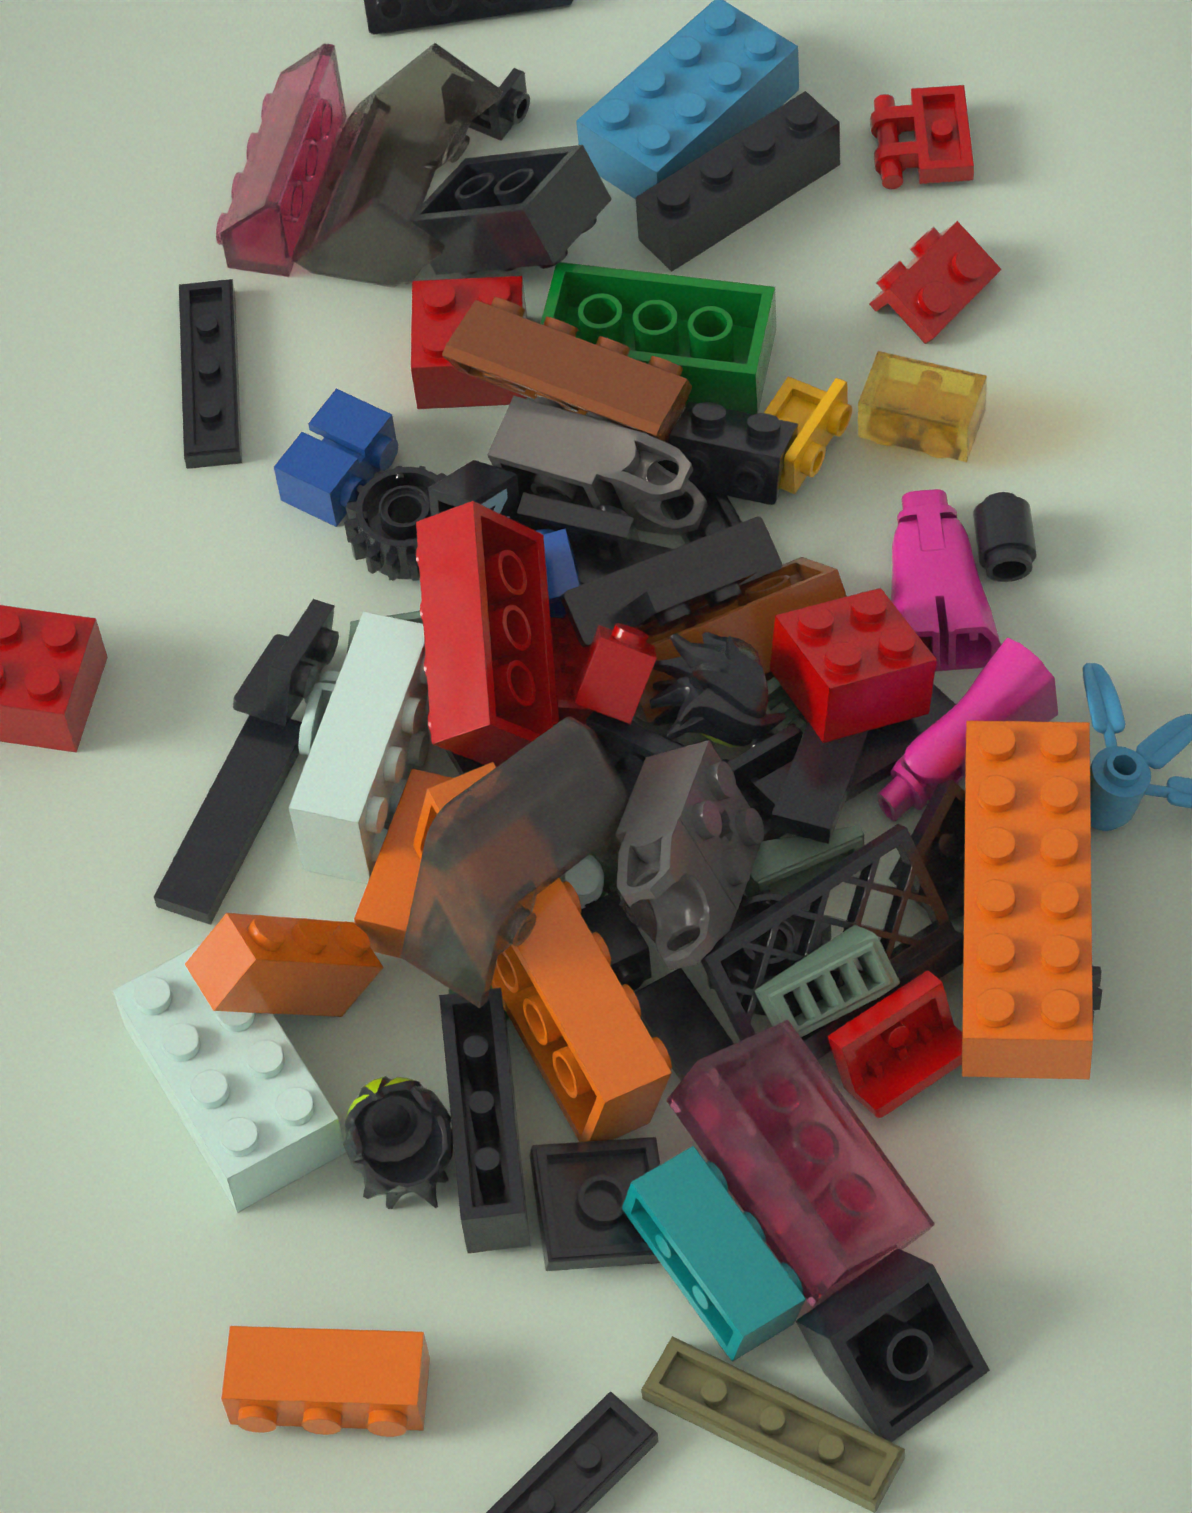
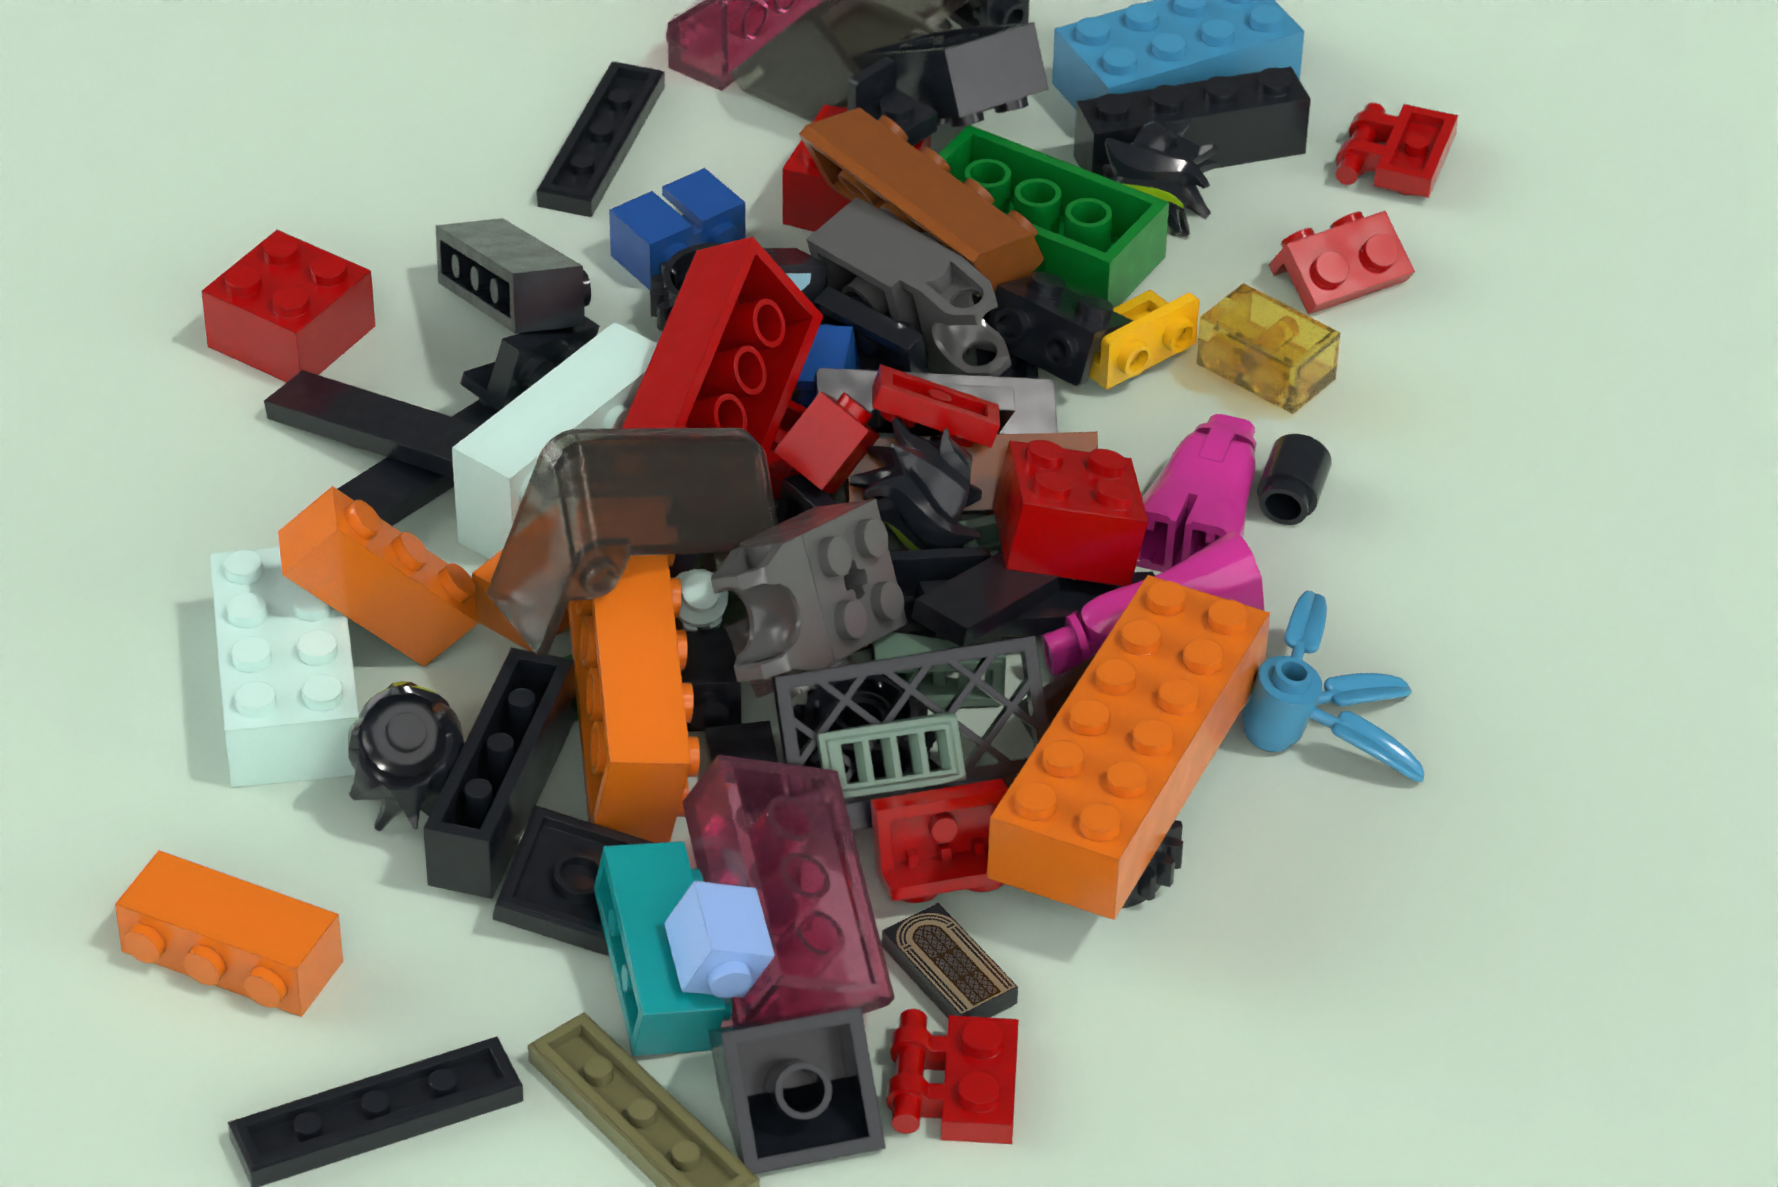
camera: 15 degrees right, 15 degrees down
(177, 775) = (369, 421): none -> black tile
(229, 580) = (511, 275): none -> black brick
(482, 275) = (877, 94): none -> black bracket
(698, 606) = (935, 406): none -> red plate
(743, 246) = (1164, 167): none -> black hair
(781, 1244) = (719, 939): none -> light blue brick
(955, 1164) = (949, 965): none -> tile
(1033, 1268) = (978, 1079): none -> red plate

